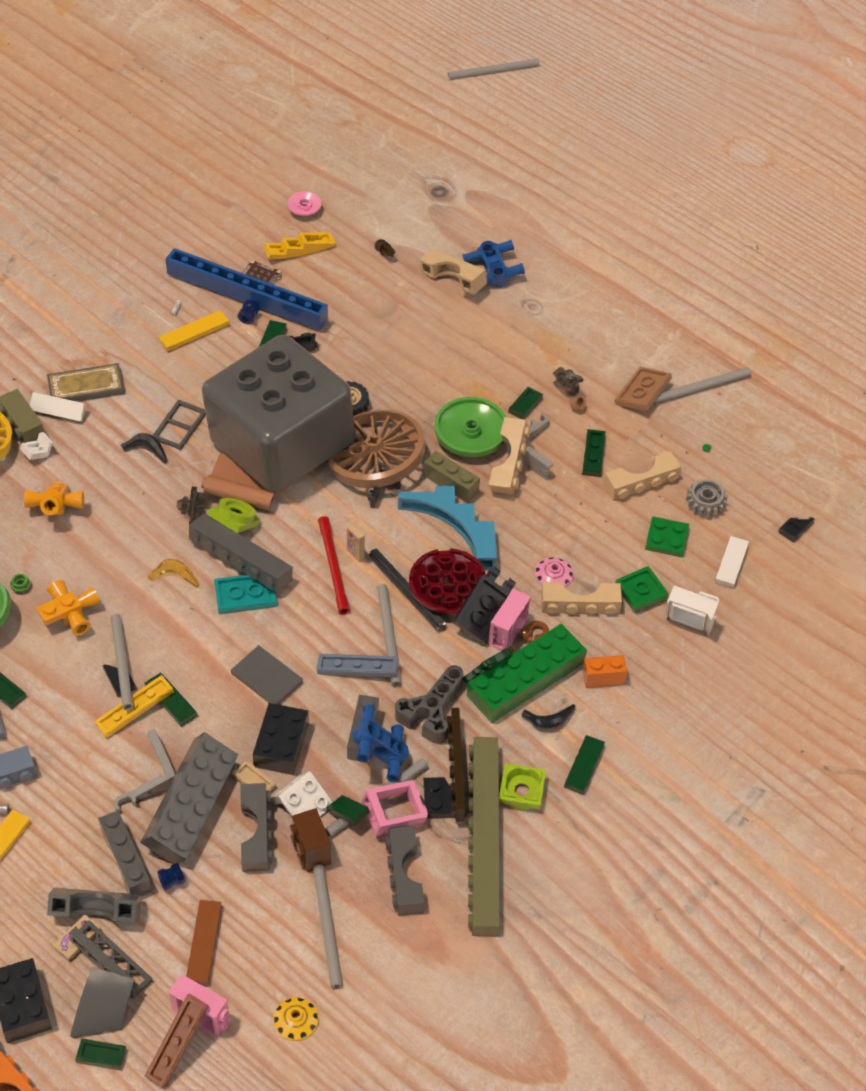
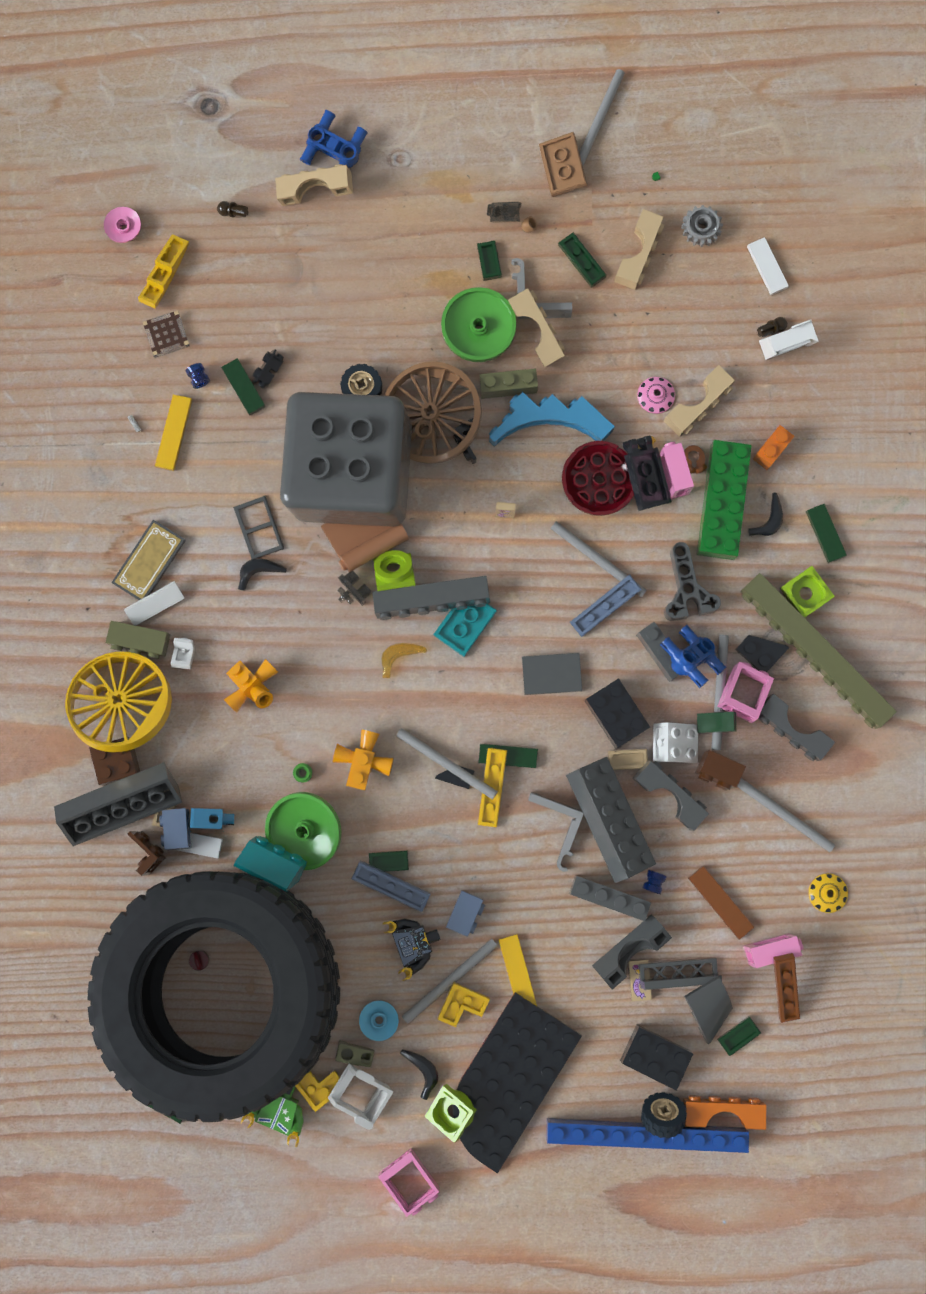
camera: 40 degrees left, 30 degrees up
(245, 287) = (173, 356): blue brick -> none
(341, 598) = (467, 517): red piece -> none
(403, 585) = (567, 509): black axle -> none
(456, 770) = (757, 625): dark brown plate -> none
(488, 663) = (698, 519): dark green tile -> none
(642, 589) = (731, 351): green plate -> none
(667, 536) = (703, 287): green plate -> none
(795, 527) = (783, 192): black tile -> none

